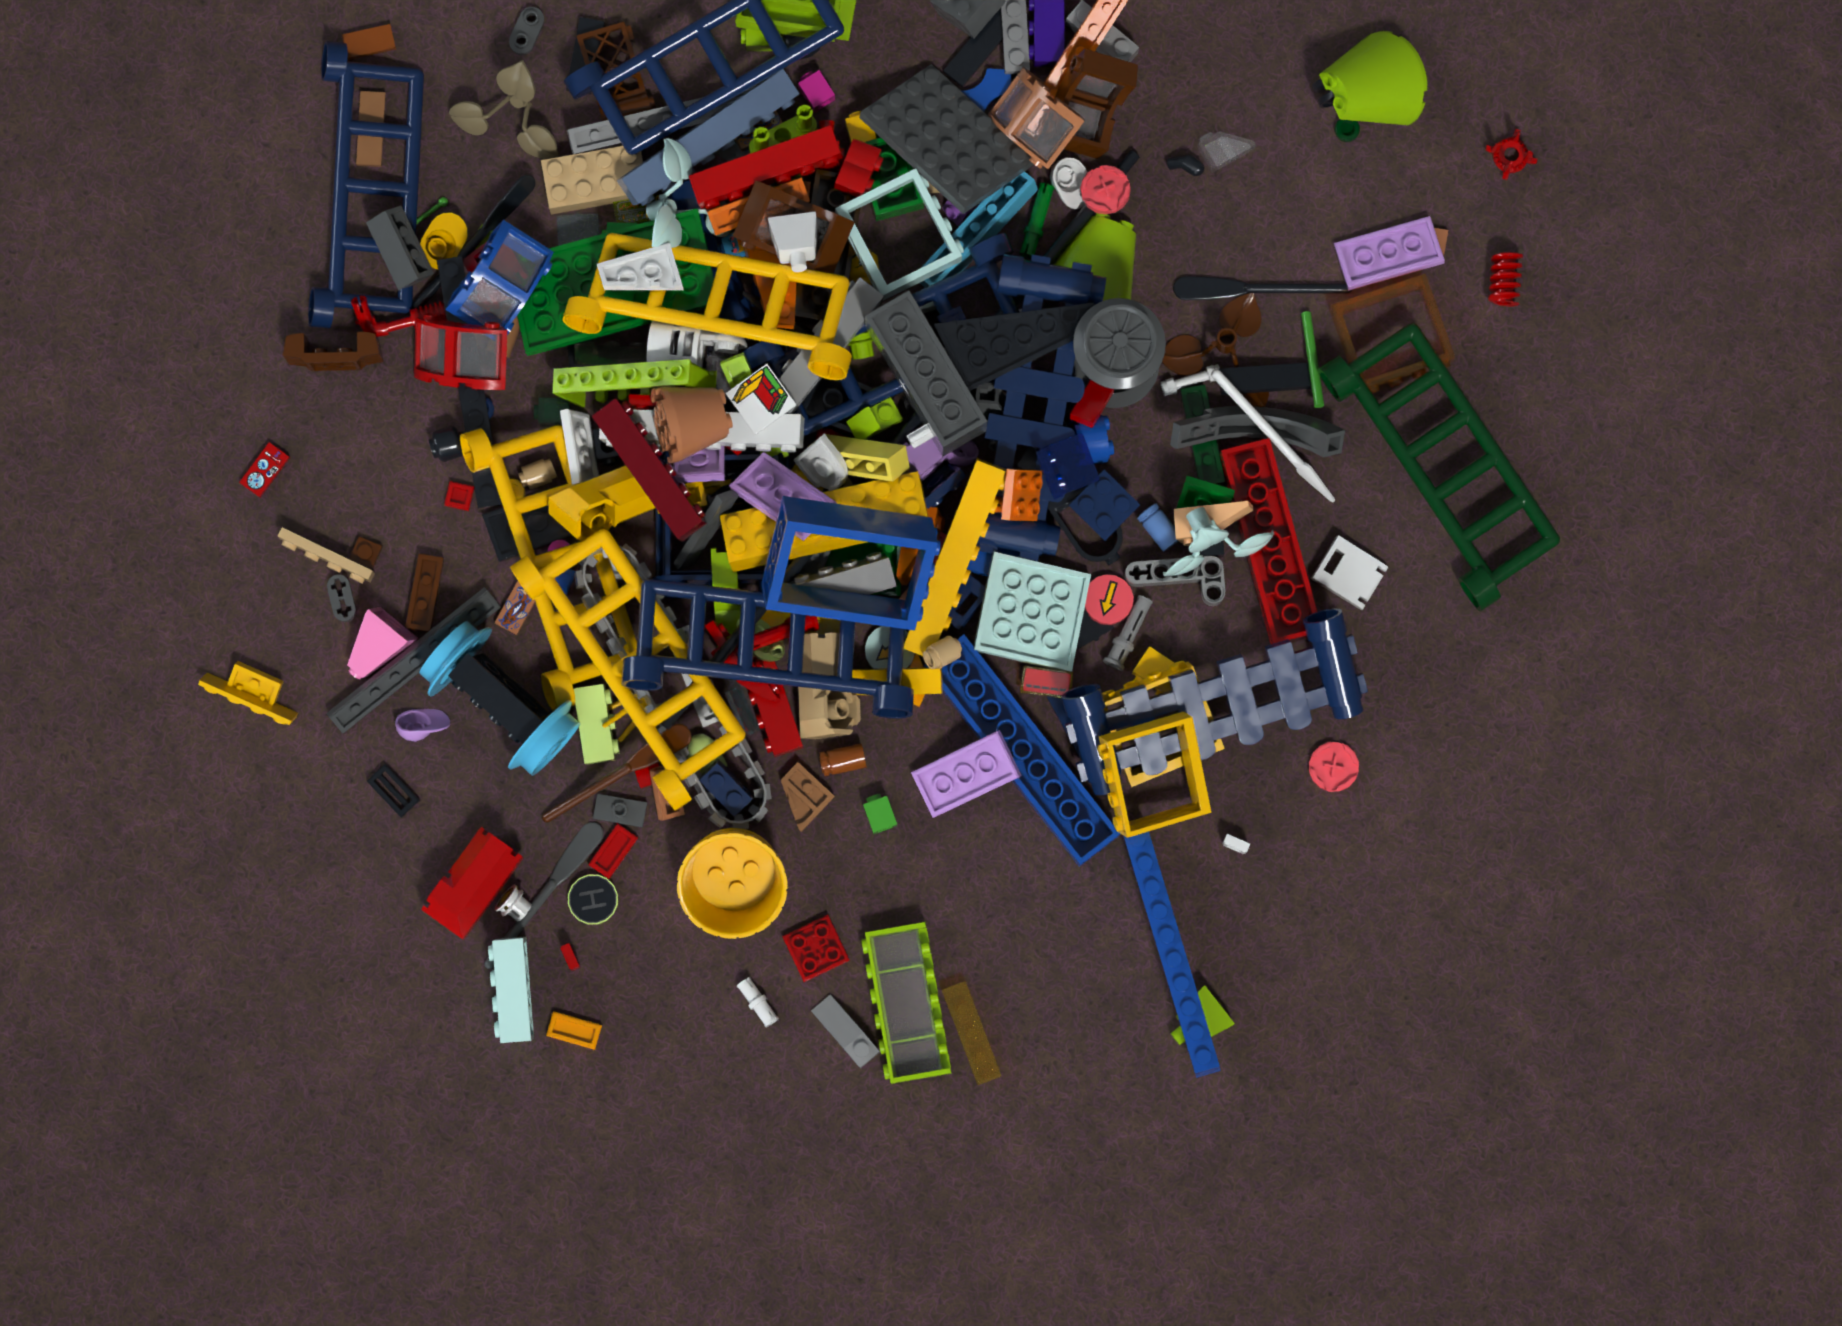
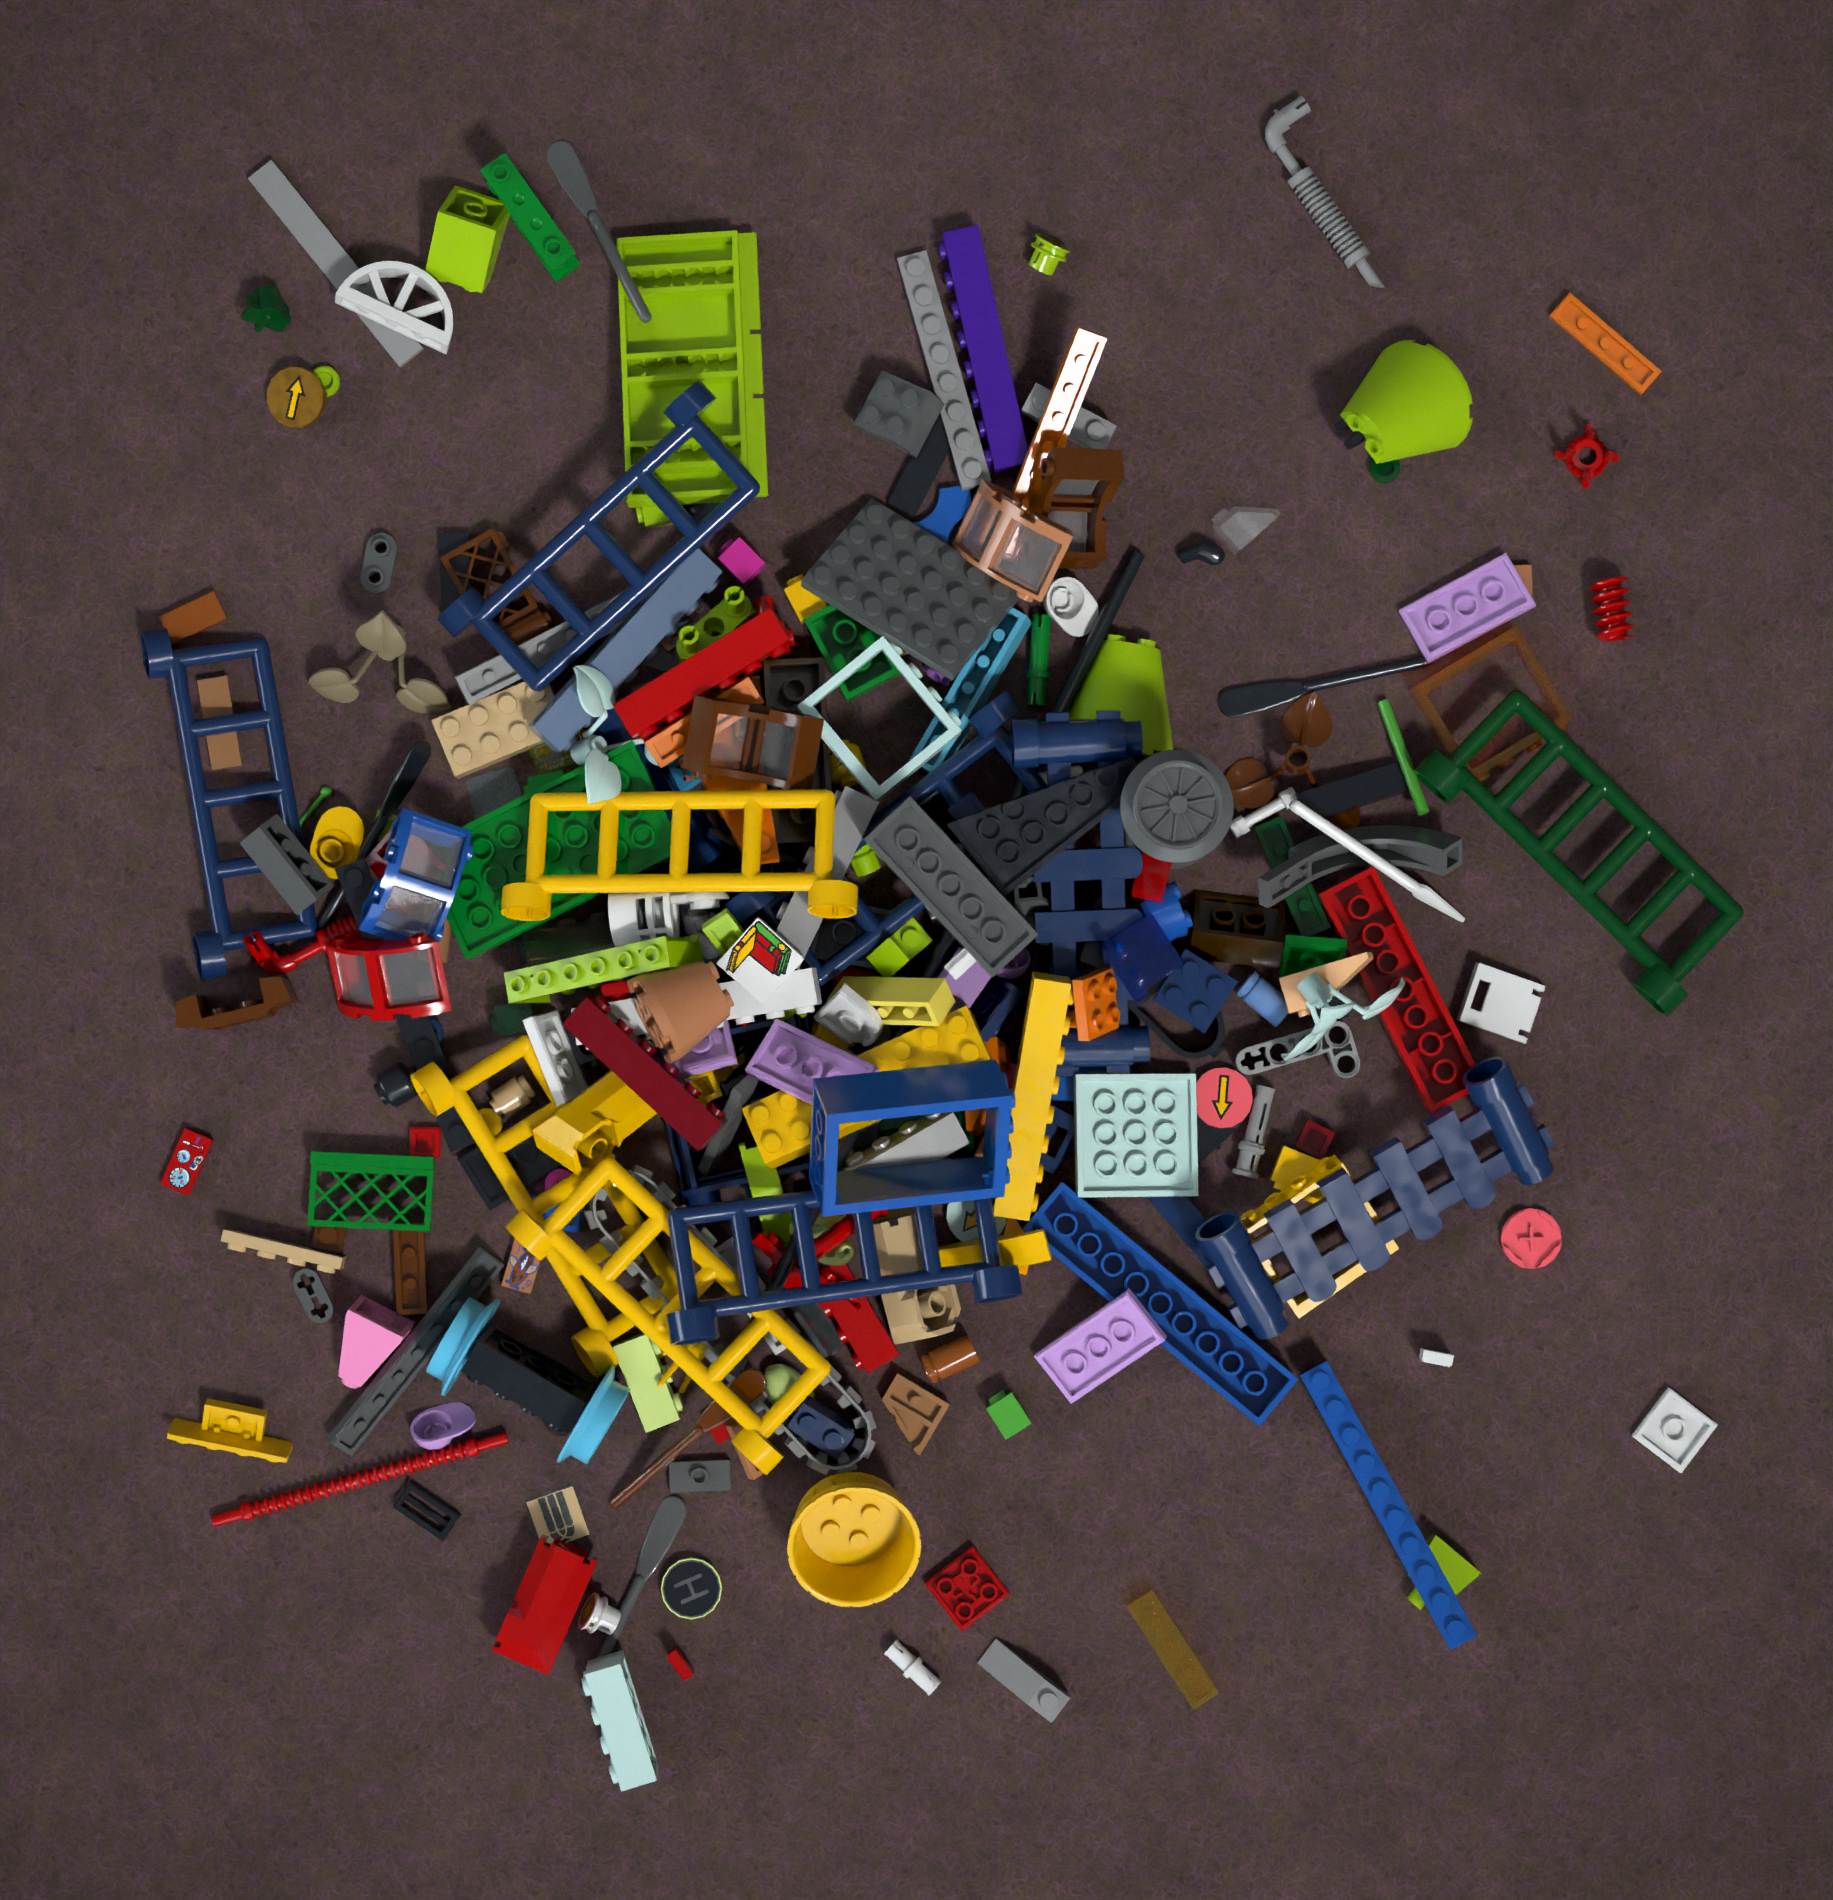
camera: 10 degrees left, 5 degrees up
(249, 758) = (248, 1510): none -> red hose
(408, 502) = (371, 1164): none -> green fence
(499, 817) = (558, 1515): none -> piece
(574, 1030) = (704, 1747): light orange tile -> none
(613, 851) = (702, 1525): red tile -> none
(642, 270) = (583, 836): white wing -> none
(794, 238) = (757, 757): white torso -> none
(858, 168) = (813, 650): red brick -> none
(906, 1003) = (1089, 1631): clear window -> none
(942, 652) = (1042, 1212): tan brick -> none
(1045, 681) = (1170, 1214): red slope -> none
(1105, 189) = (1113, 606): coral tile -> none
(1150, 467) = (1237, 930): none -> dark brown slope
(1175, 648) = (1314, 1139): none -> dark red plate
(1193, 768) = (1353, 1346): yellow window -> none
(1417, 946) = (1674, 1430): none -> white tile
(1545, 69) = (1605, 343): none -> orange tile

